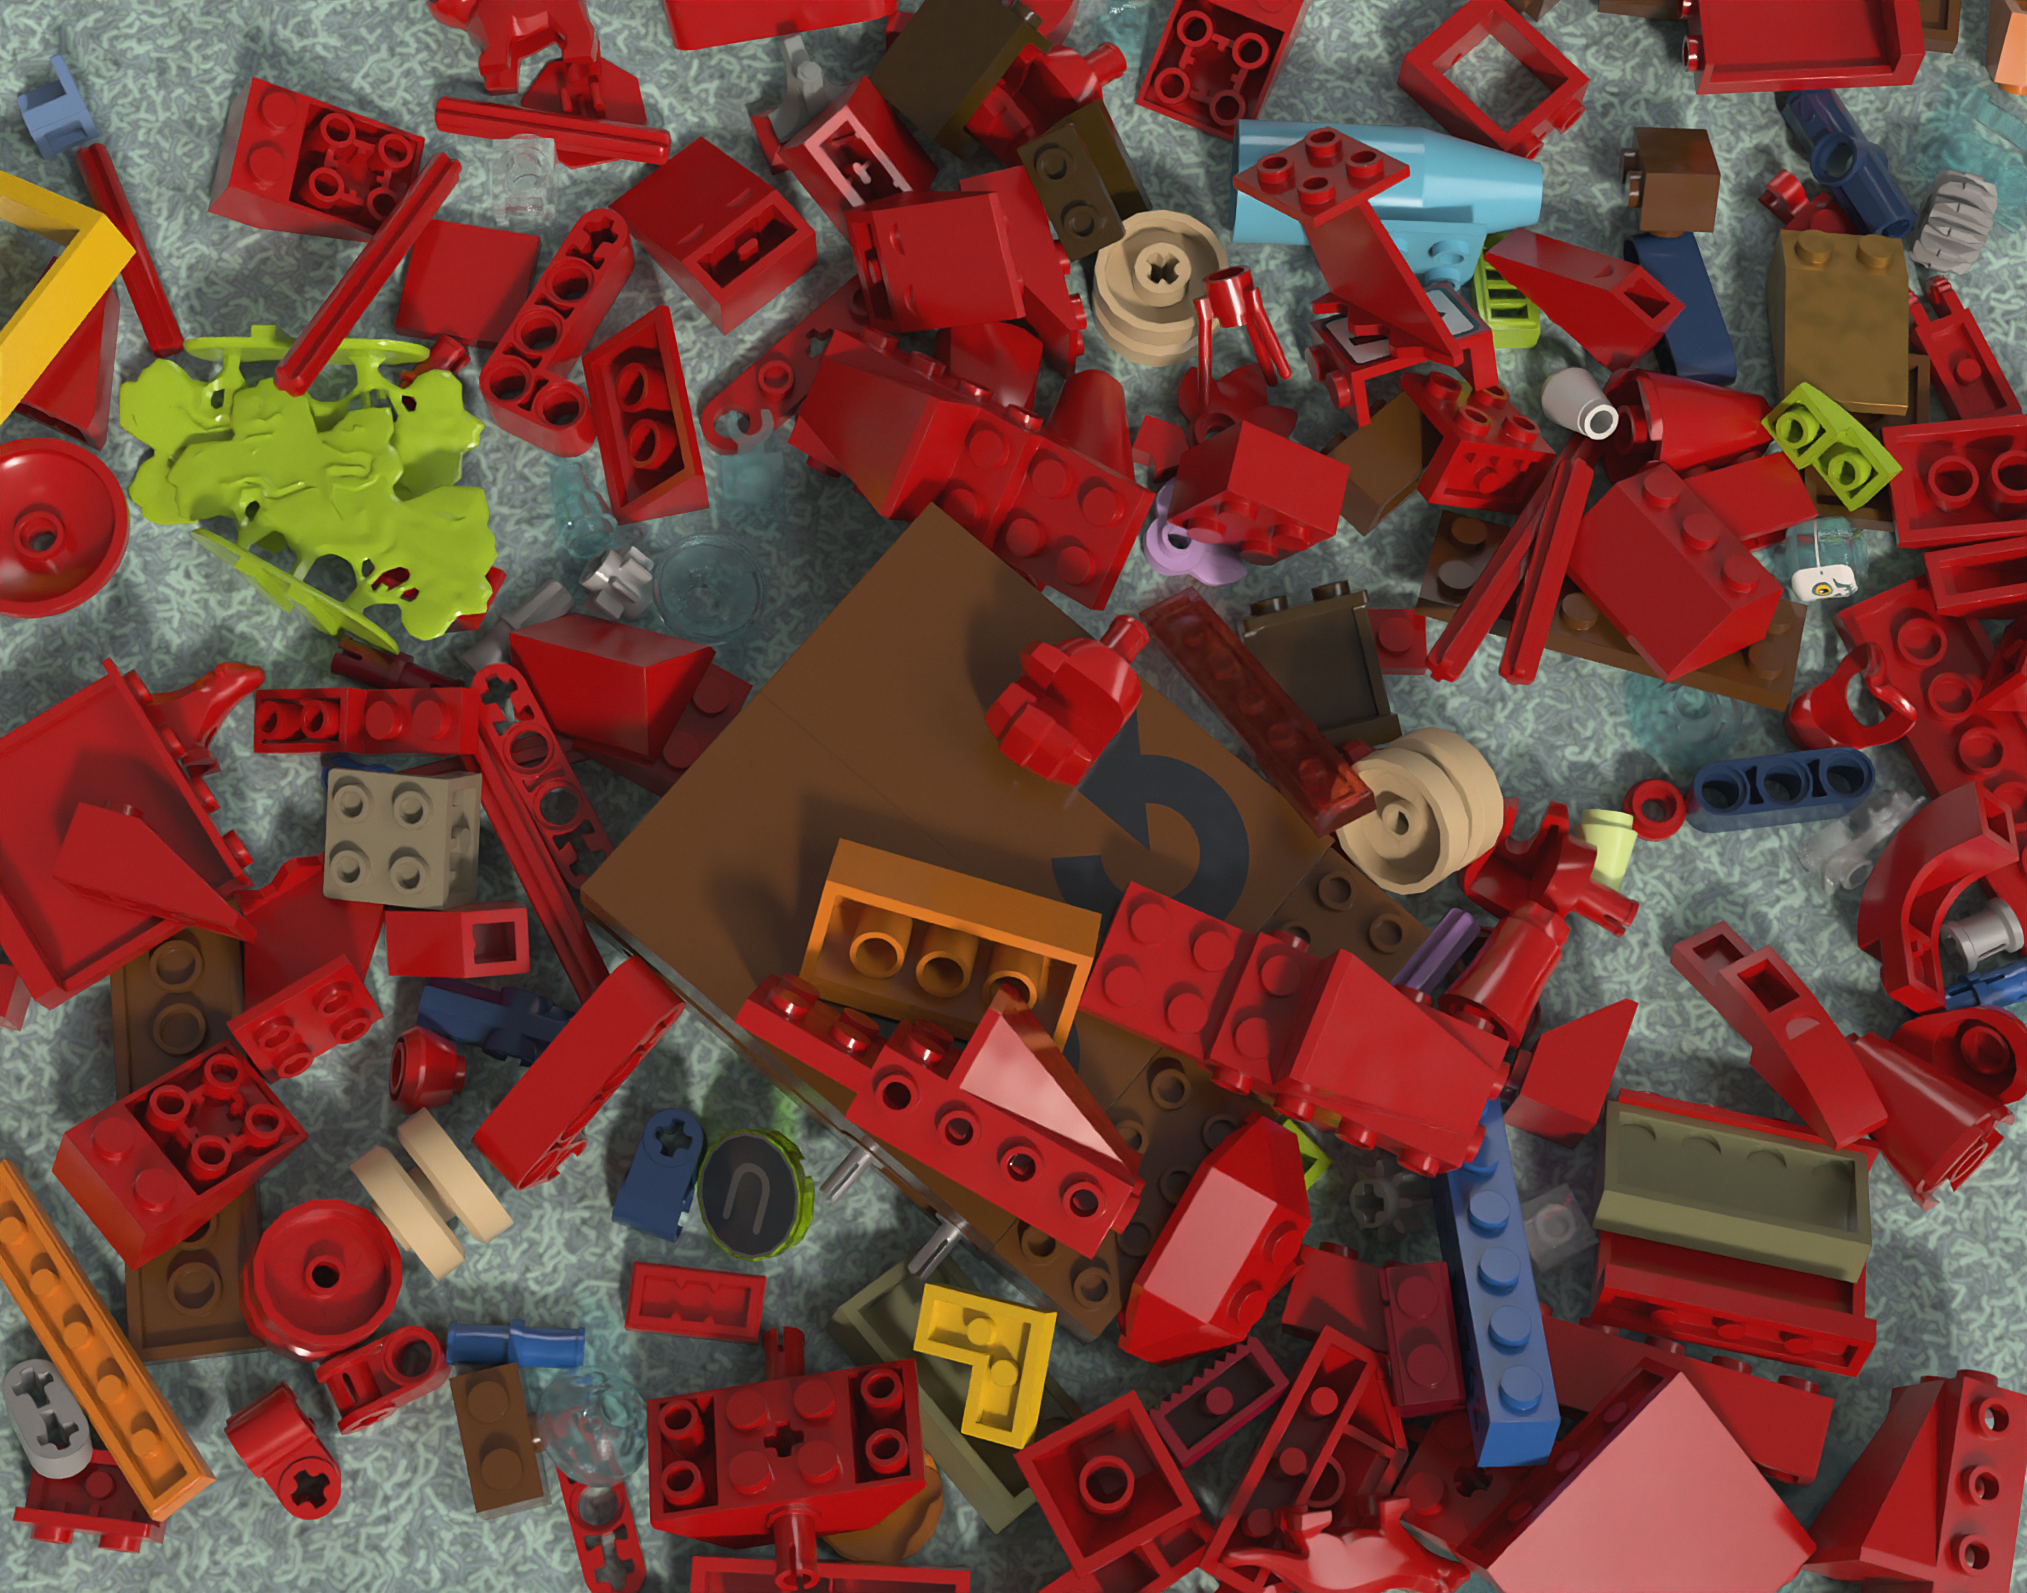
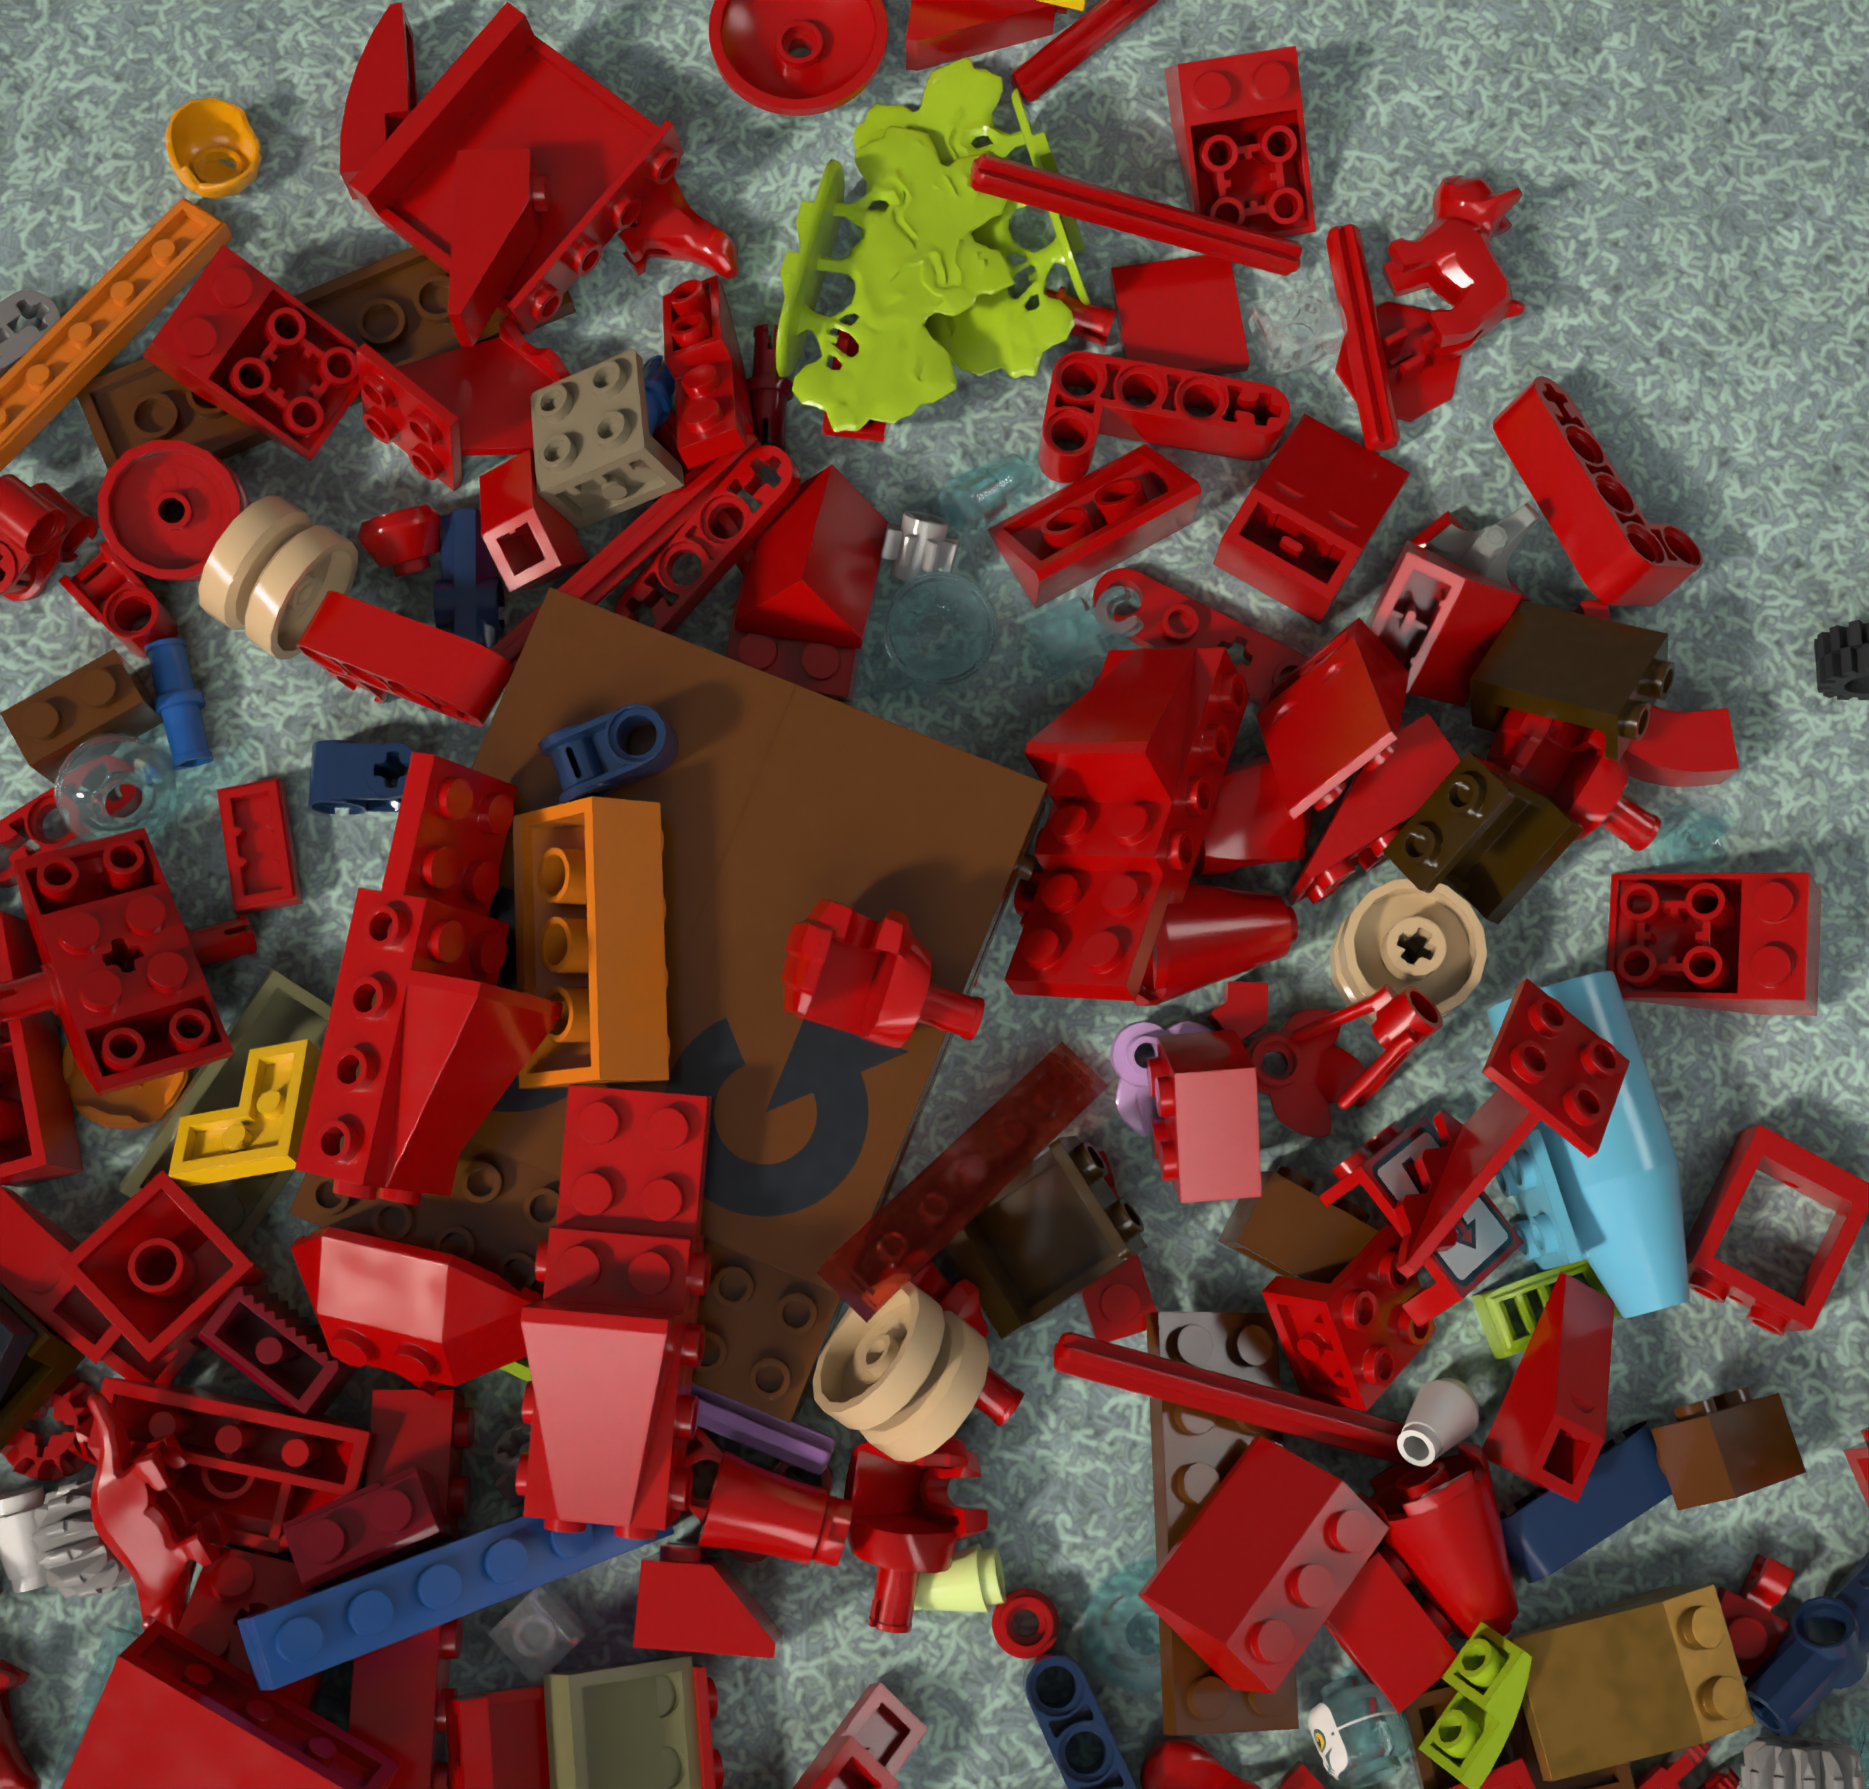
camera: 75 degrees right, 5 degrees up
(544, 604) = (879, 490): light grey axle -> none
(755, 1194) = (352, 860): black tile -> none
(772, 887) = (595, 755): none -> dark blue piece
(1545, 572) = (1222, 1434): red axle -> none

